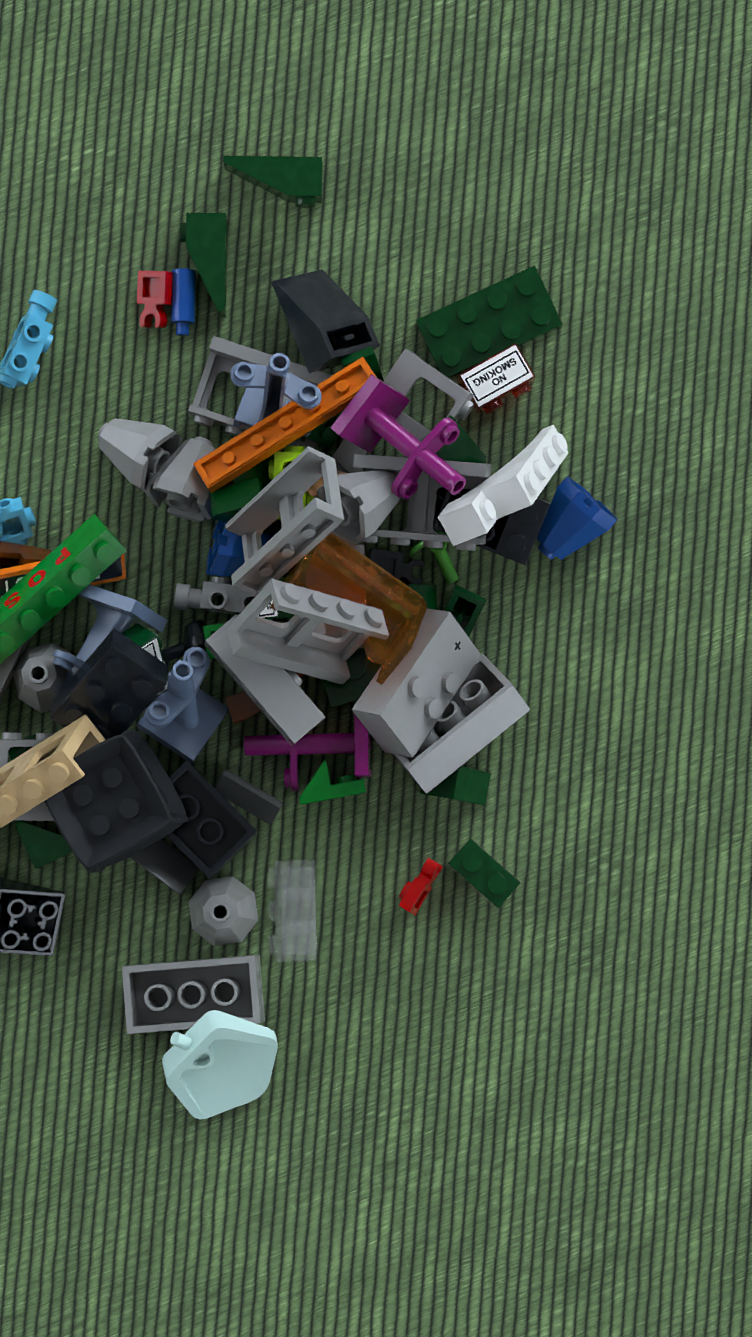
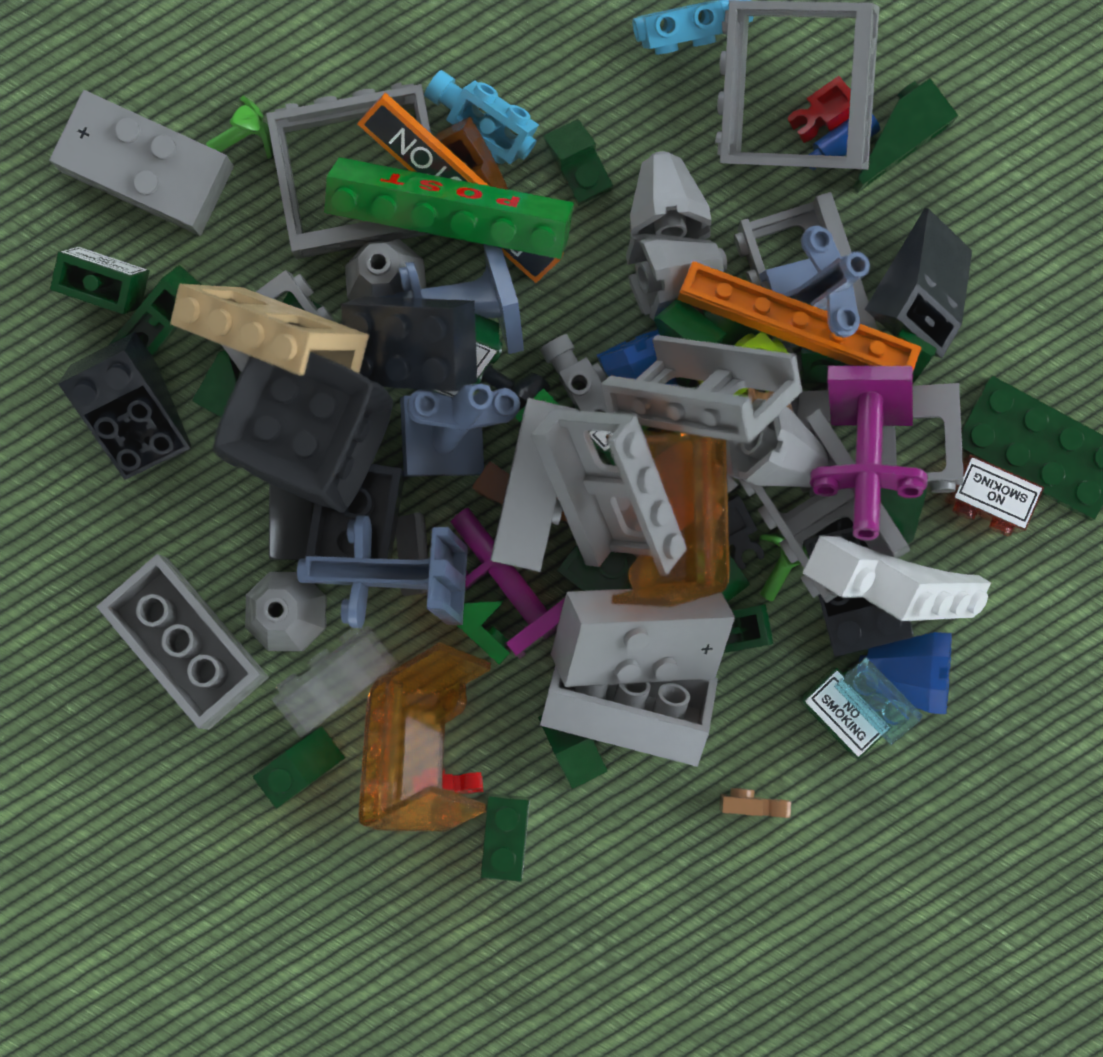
camera: 55 degrees right, 0 degrees up
(64, 488) = (578, 161): none -> dark green slope
(100, 354) = (733, 66): none -> light grey window
(219, 1063) = (133, 717): light aqua animal -> none
(277, 785) = (440, 574): none -> sand blue piece
(287, 177) = (1035, 148): dark green slope -> none
(335, 977) = (299, 767): none -> dark green slope
(373, 893) = (406, 743): none -> clear orange windscreen
(568, 584) = (838, 715): none -> brick
(575, 558) = (878, 701): none -> clear light blue plate
(576, 696) = (743, 802): none -> medium nougat plate

